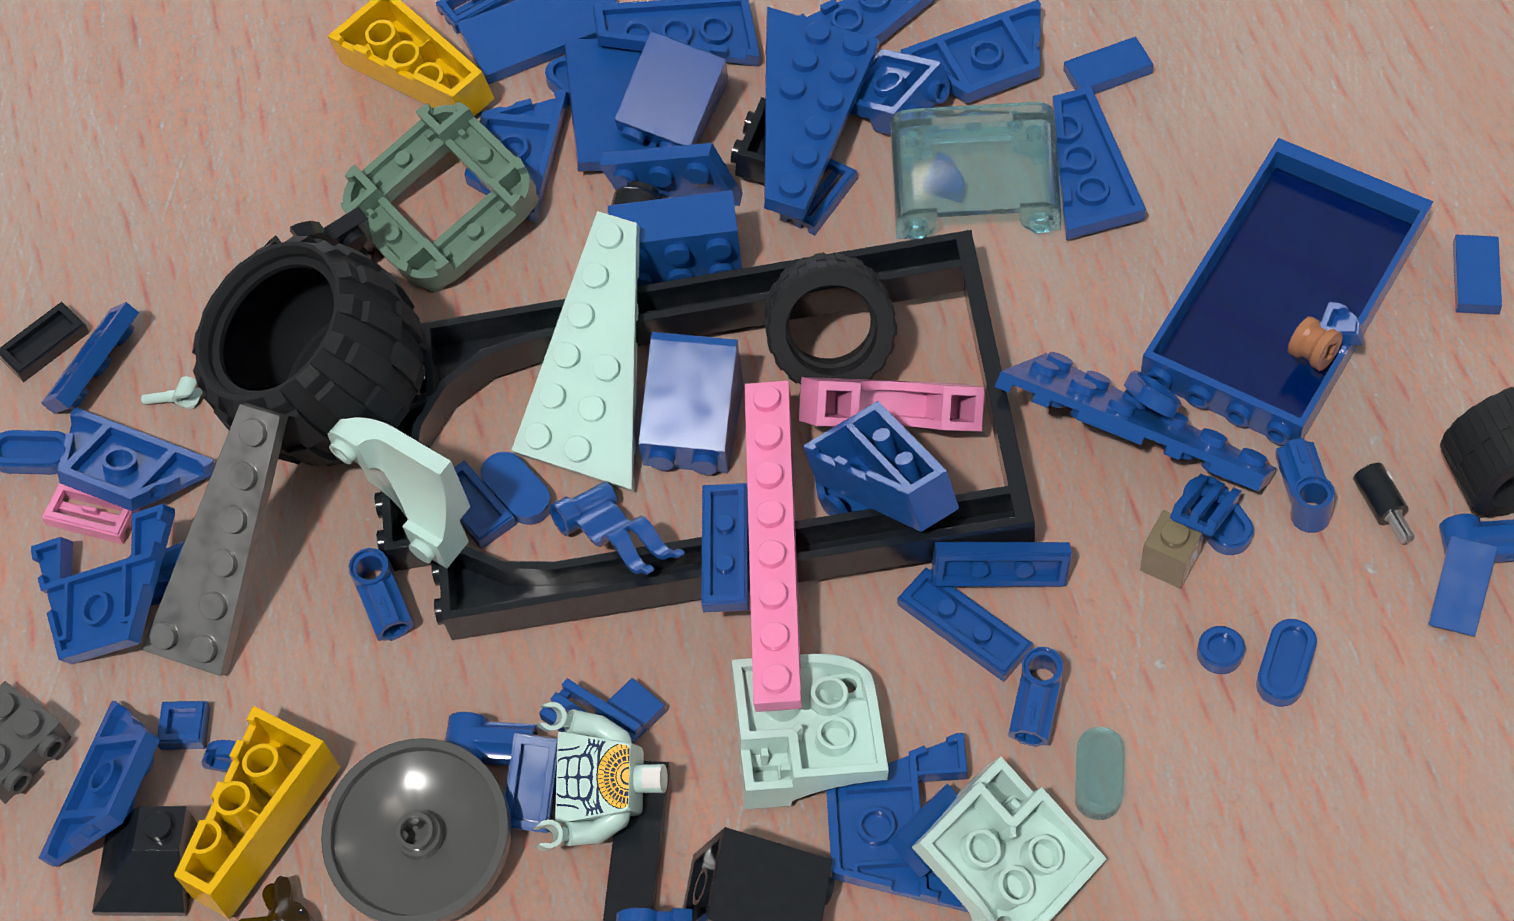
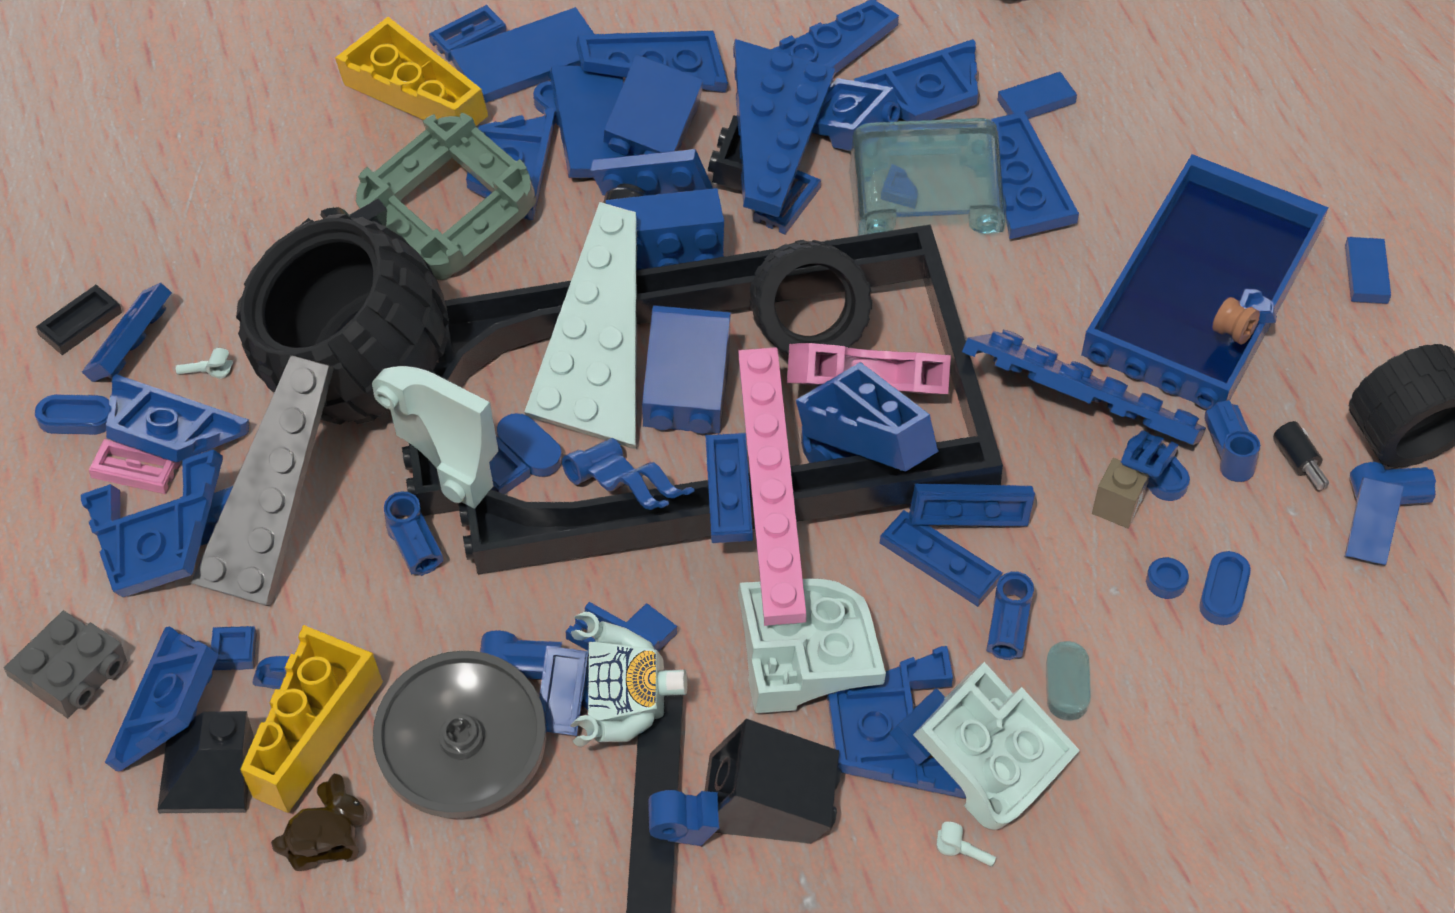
camera: 10 degrees left, 5 degrees down
(1152, 393) = (1097, 362): blue tile -> none

